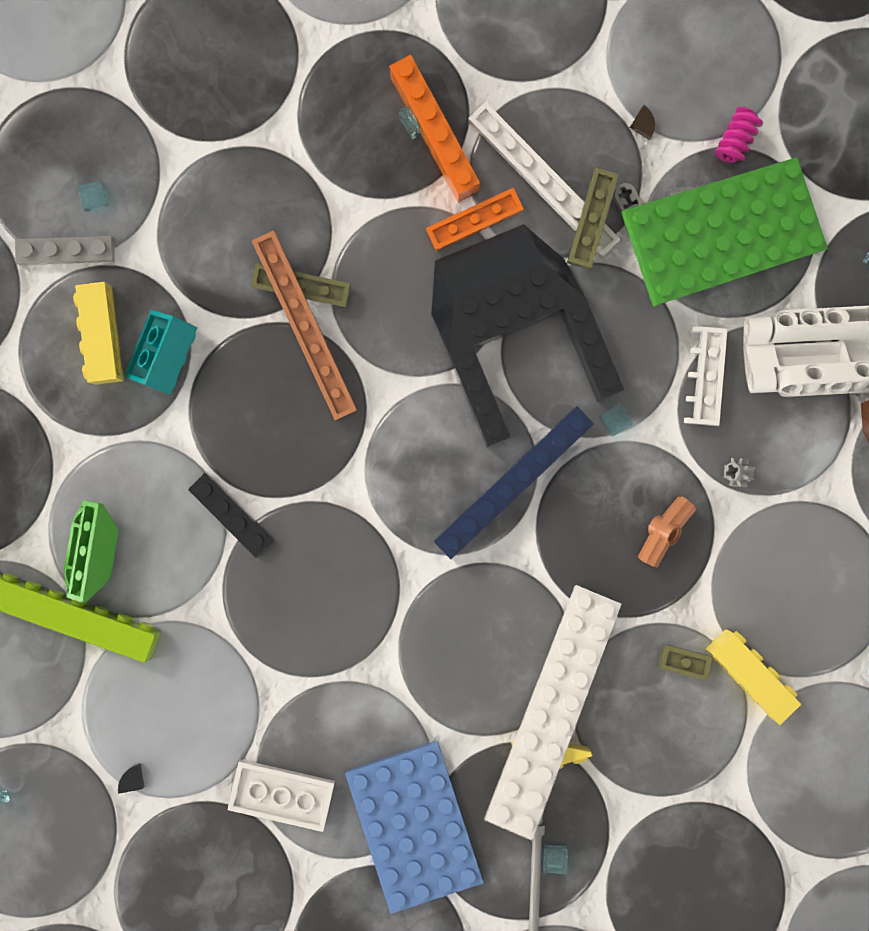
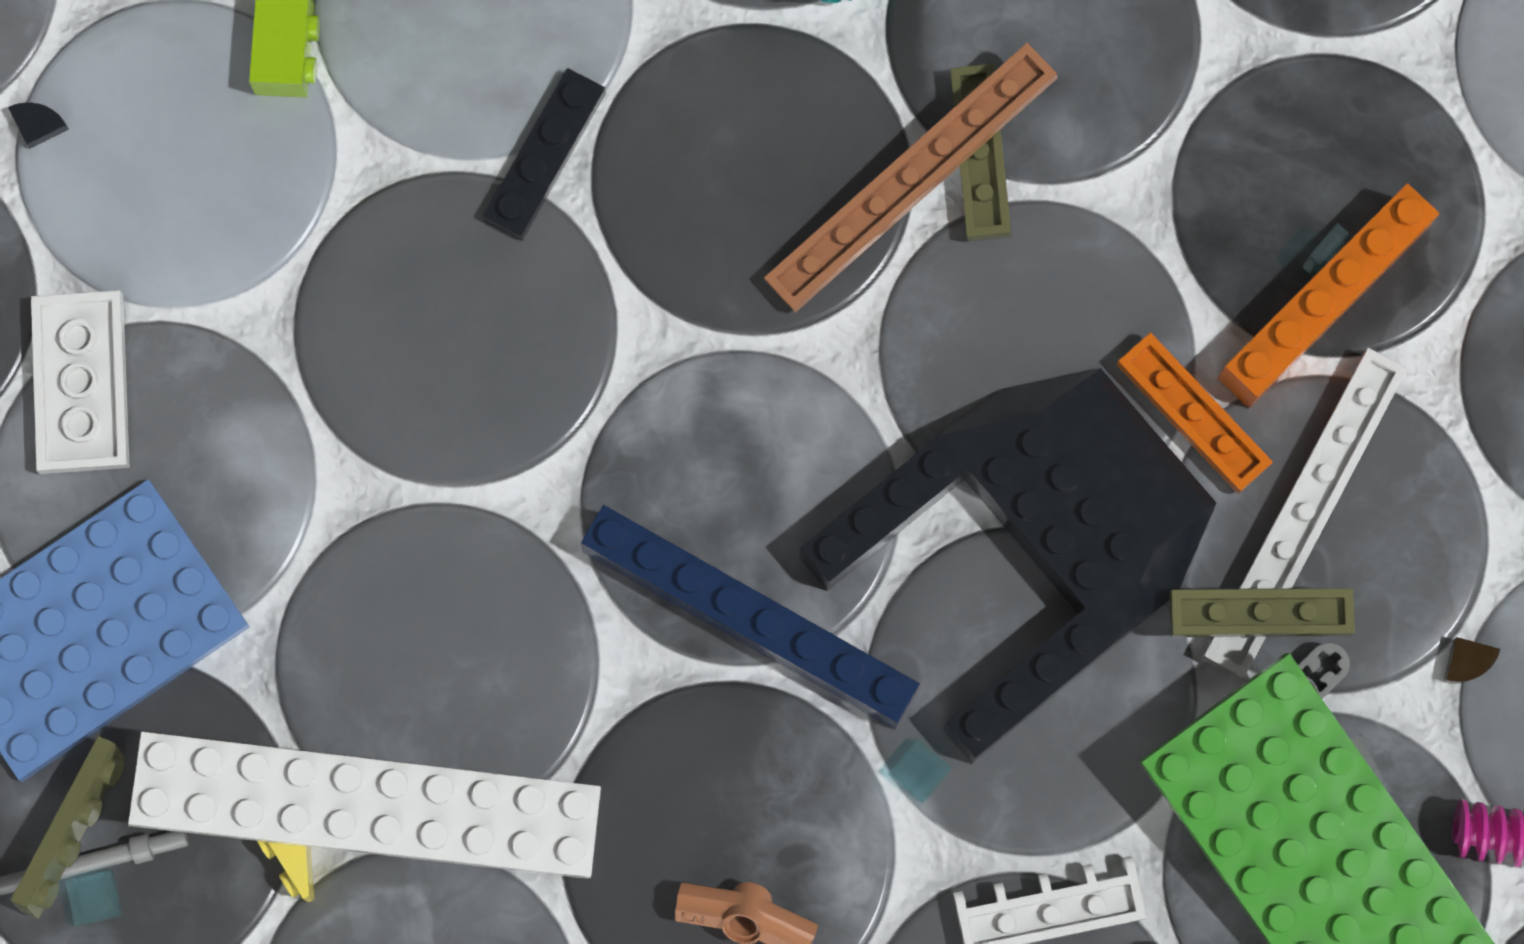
camera: 65 degrees right, 10 degrees down
(524, 871) = (62, 840): none -> olive plate

